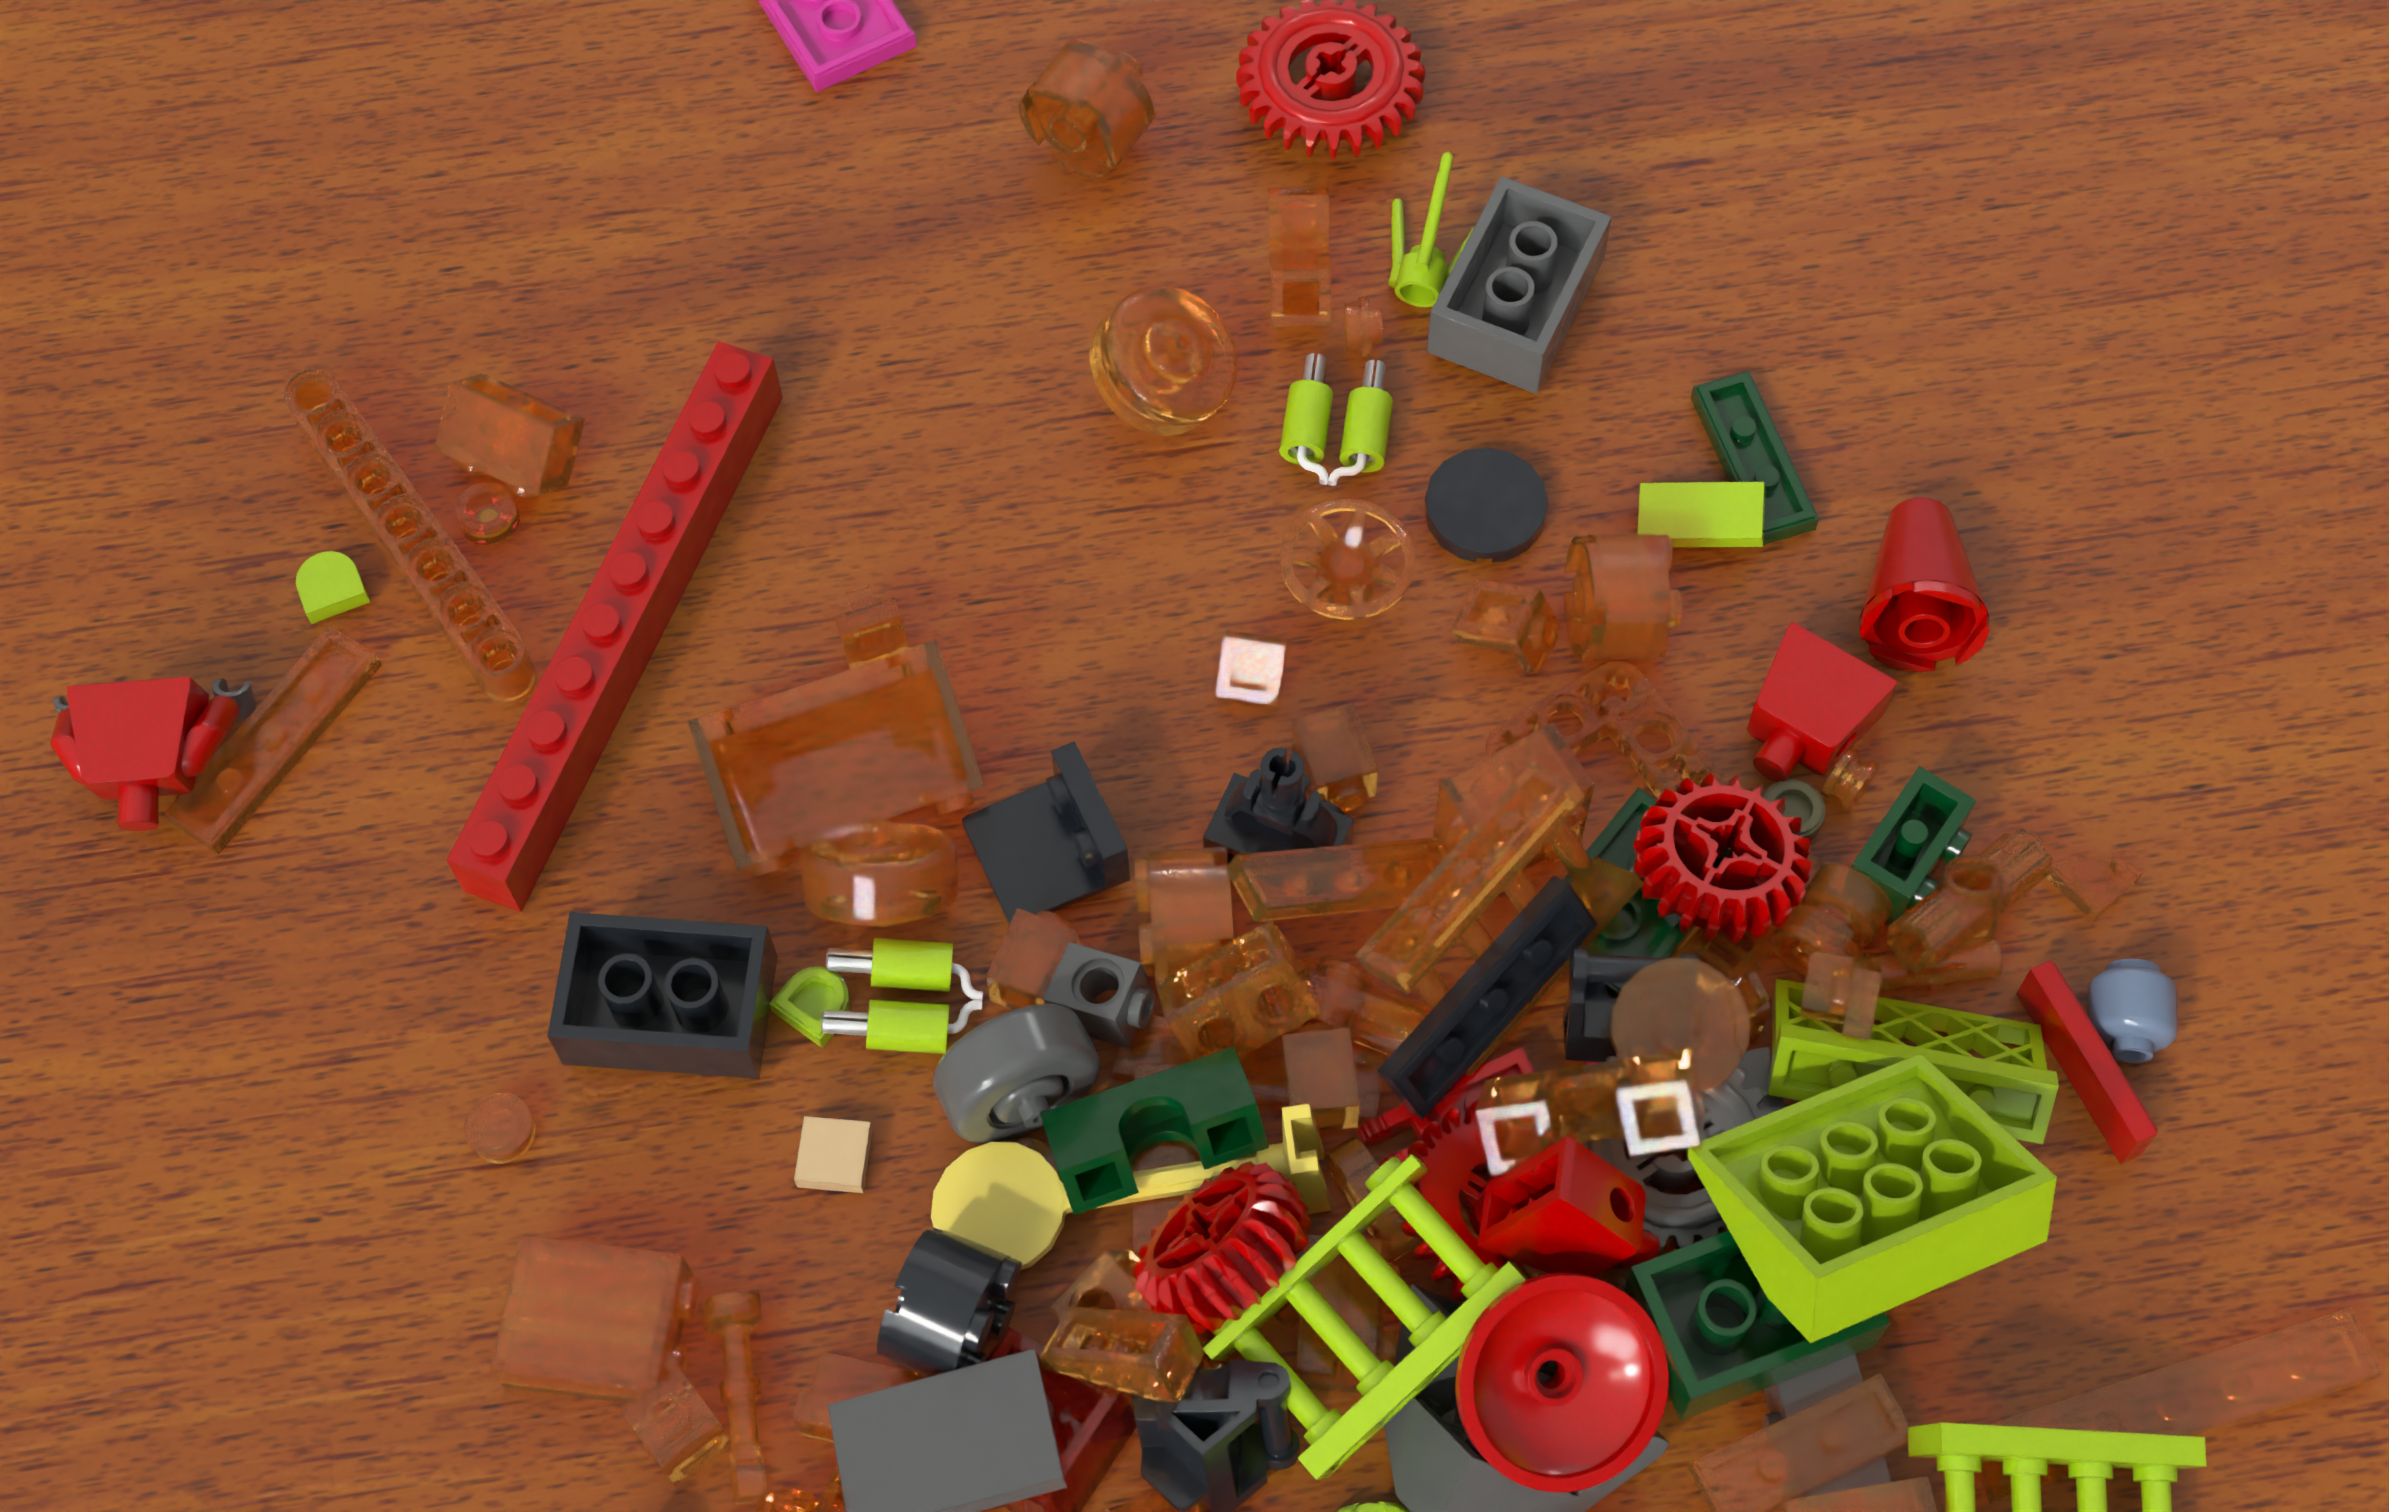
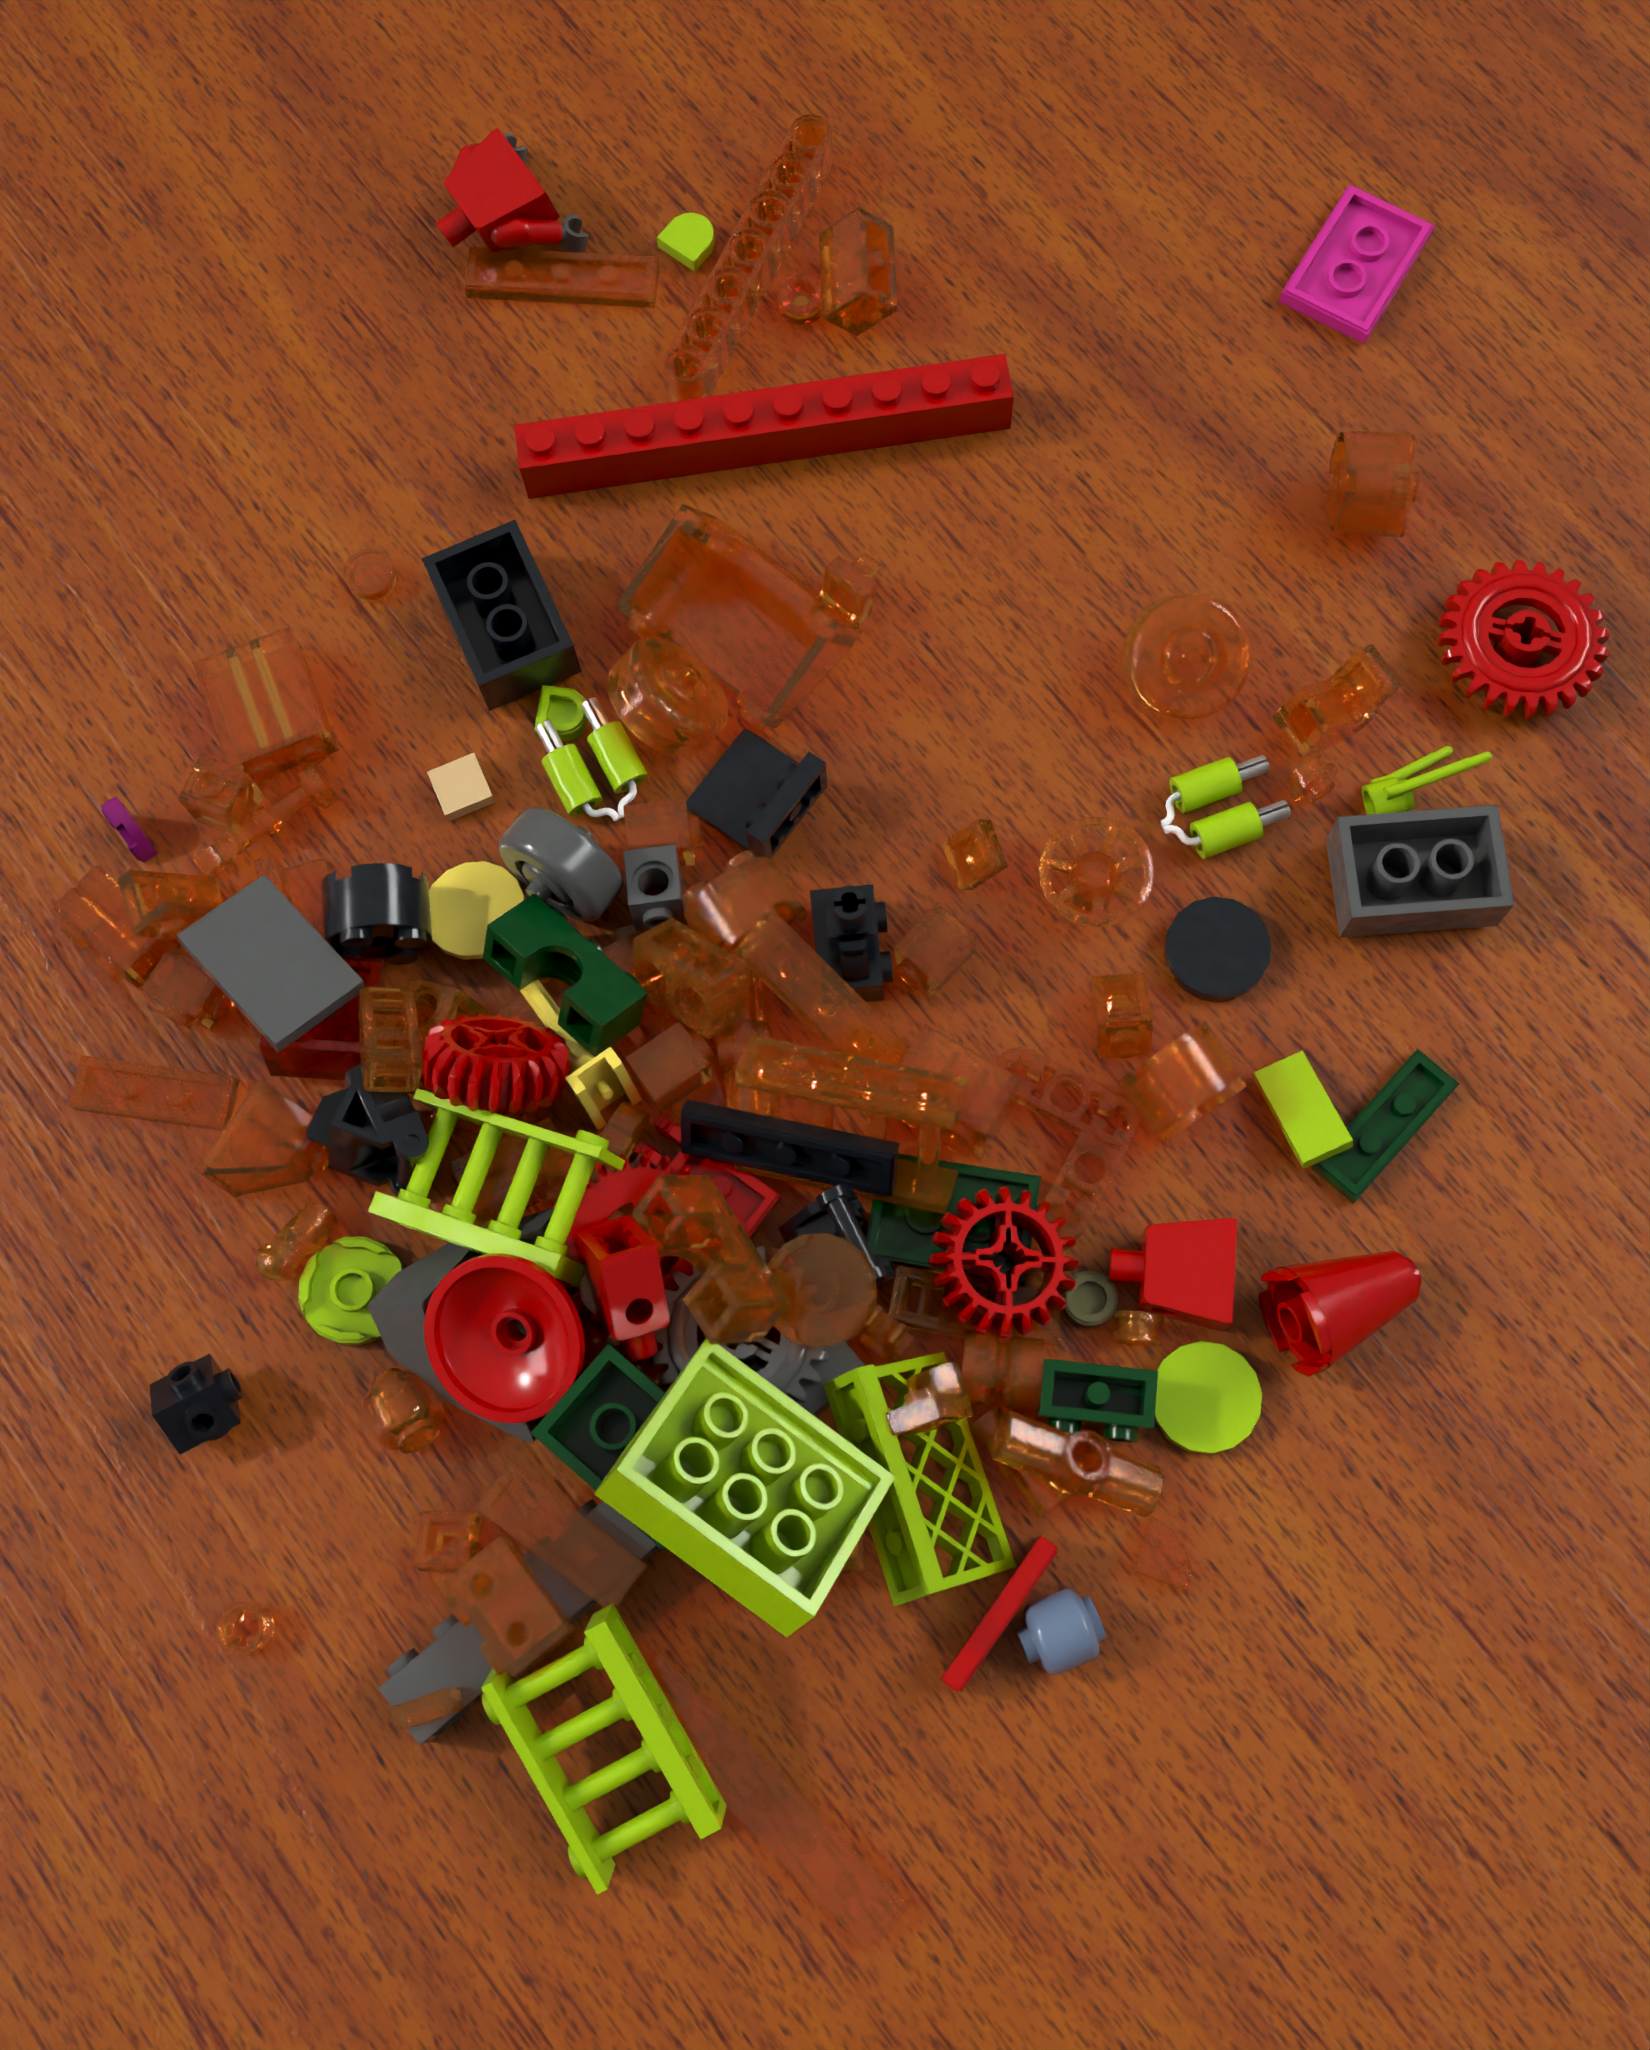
camera: 65 degrees right, 10 degrees up
(1956, 744) = (1206, 1398): none -> lime tile

